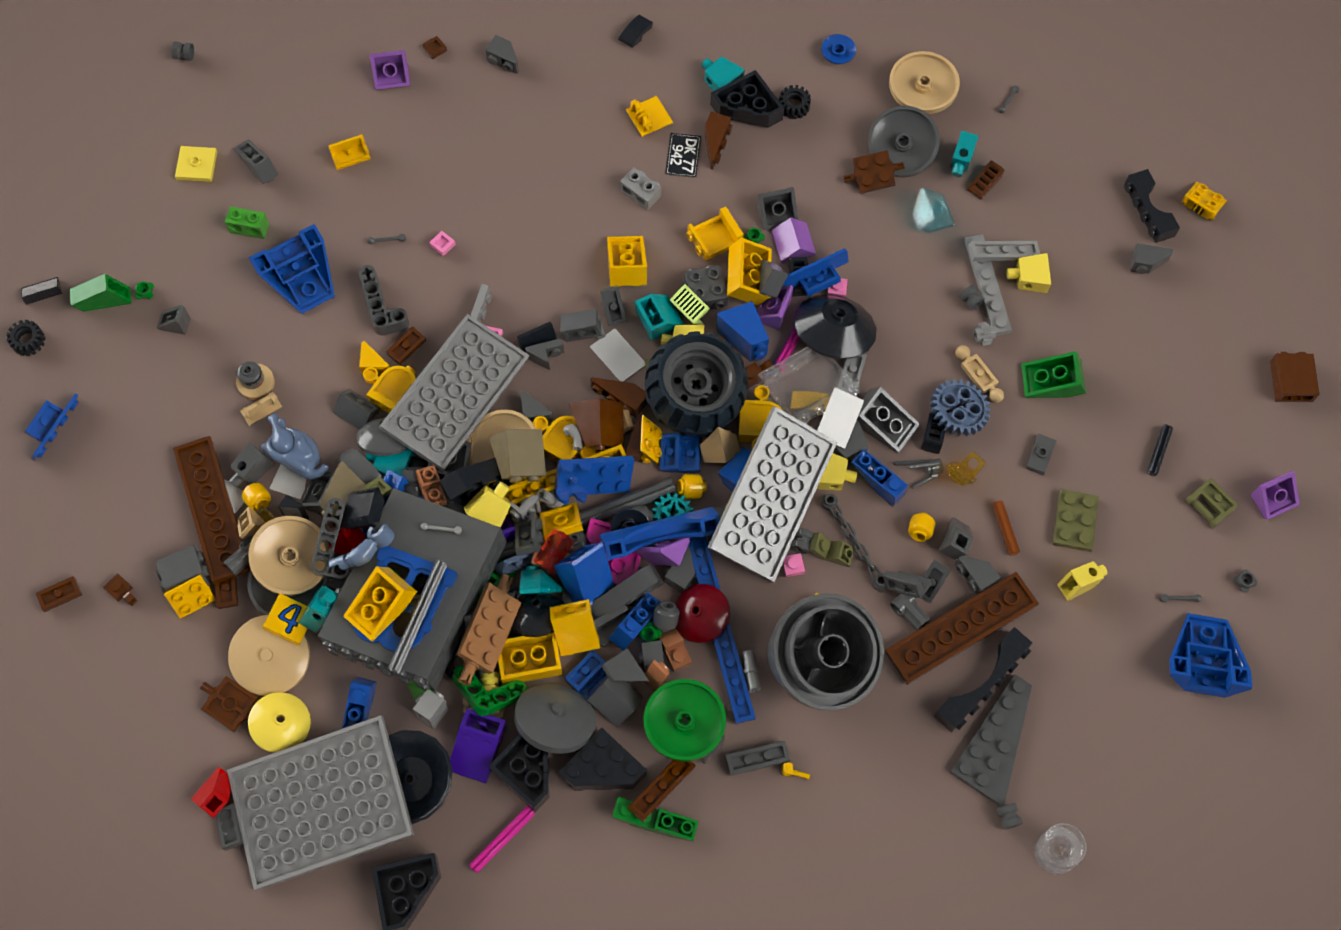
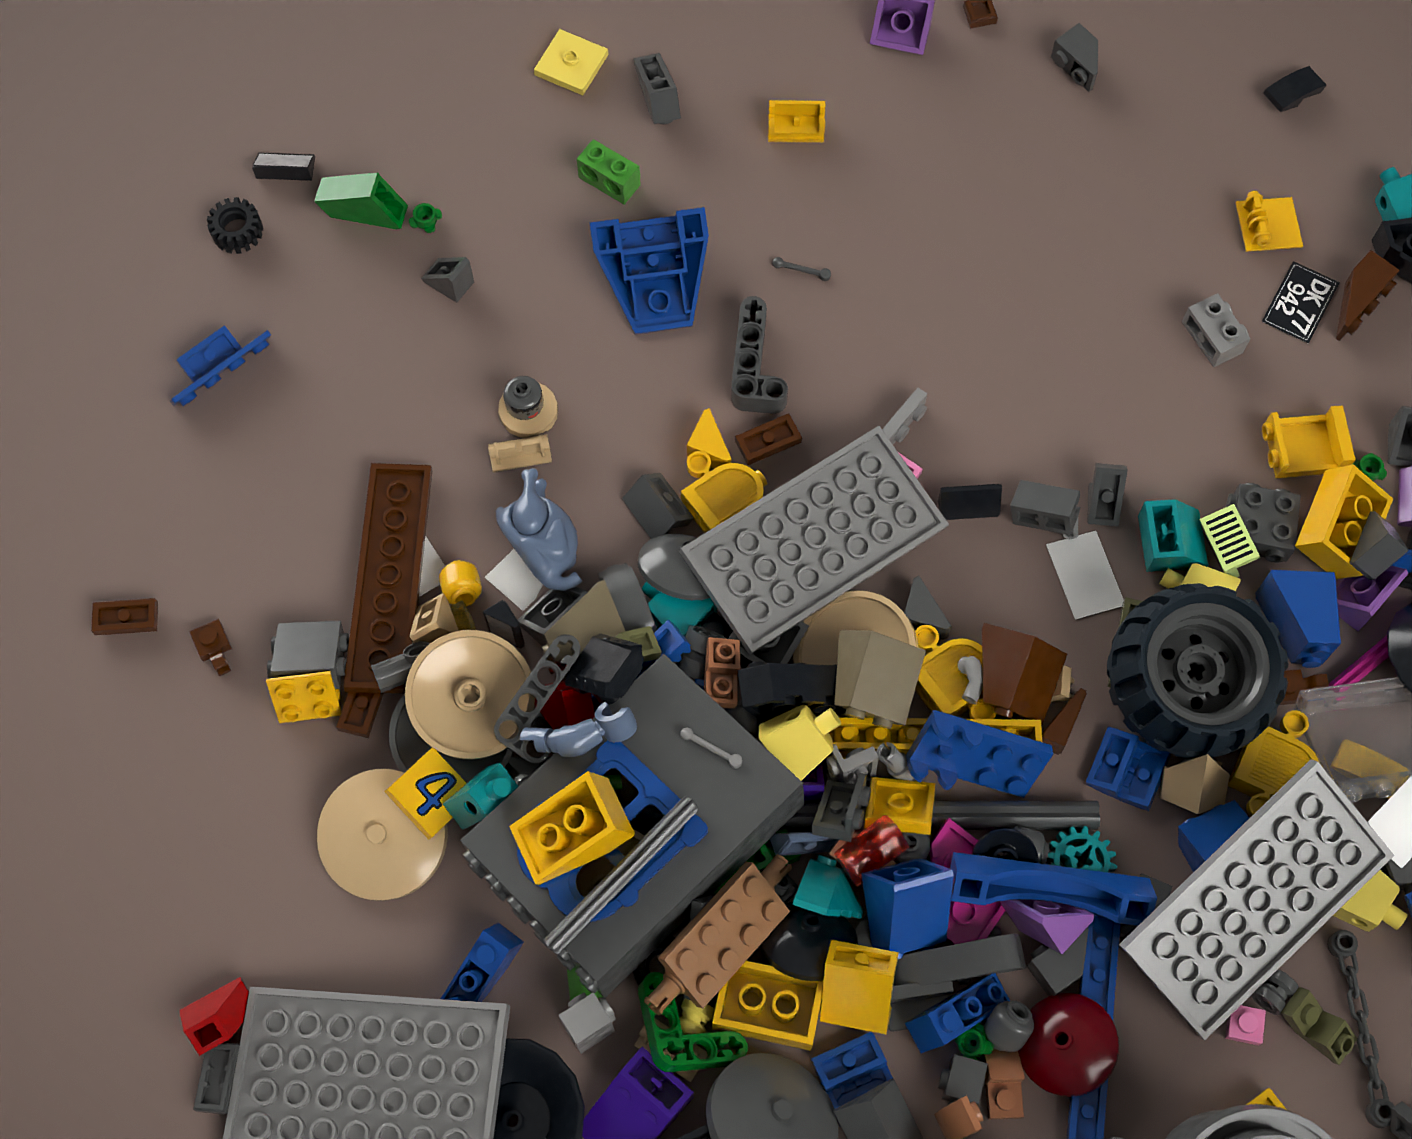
camera: 25 degrees right, 0 degrees up
(228, 703) = (296, 885): reddish brown plate -> none
(249, 466) = (469, 533): dark grey torso -> none
(276, 735) = (350, 969): light yellow dish -> none
(442, 243) = (881, 304): bright pink plate -> none
(540, 352) = (967, 525): dark grey slope -> none
(624, 668) = (912, 1087): dark grey slope -> none
(627, 261) = (1154, 434): yellow slope -> none
(628, 393) = (1081, 642): reddish brown slope -> none
(650, 441) = (1087, 732): yellow hinge -> none
(691, 486) = (1126, 830): yellow head -> none

